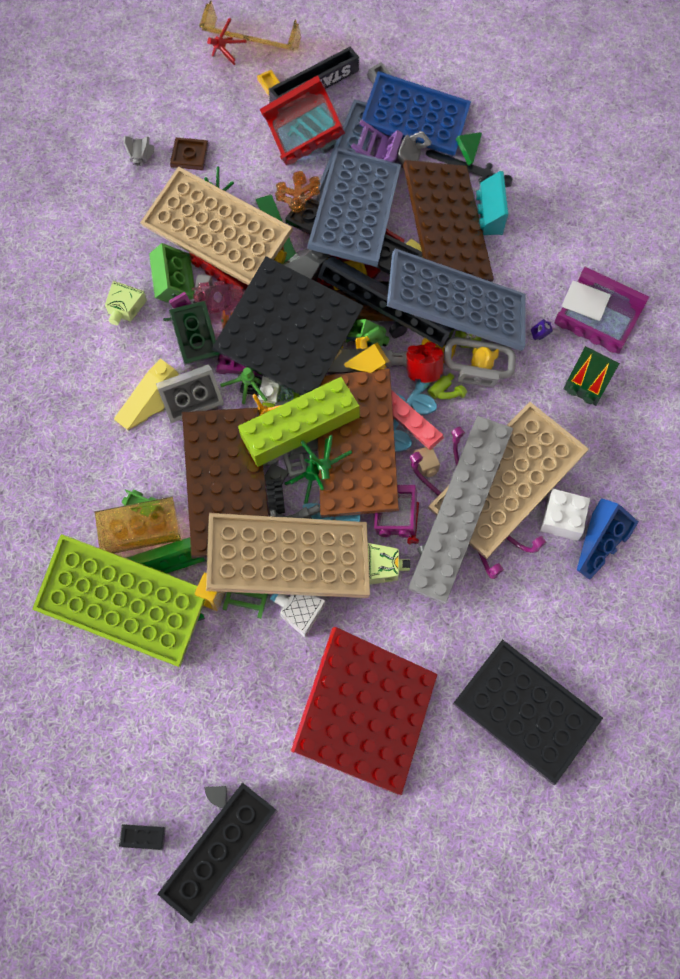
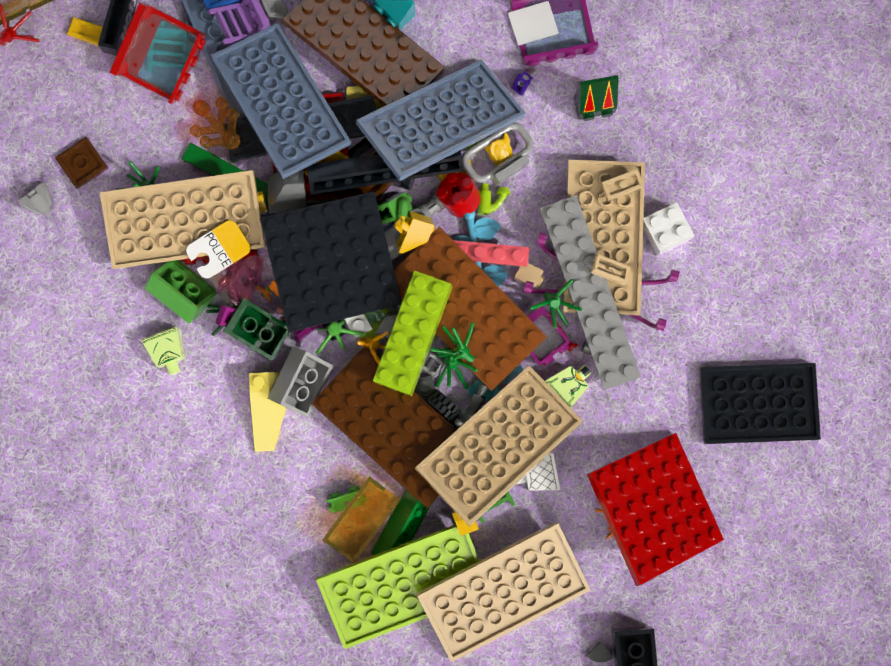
camera: 45 degrees left, 15 degrees up
(188, 673) = (503, 591): none -> tan plate
(225, 262) = (222, 245): none -> piece
(427, 492) = (553, 301): none -> green plant
(489, 502) = (597, 257): none -> tan tile
(556, 448) = (622, 185): none -> tan plate
(606, 529) = (704, 212): blue wedge -> none

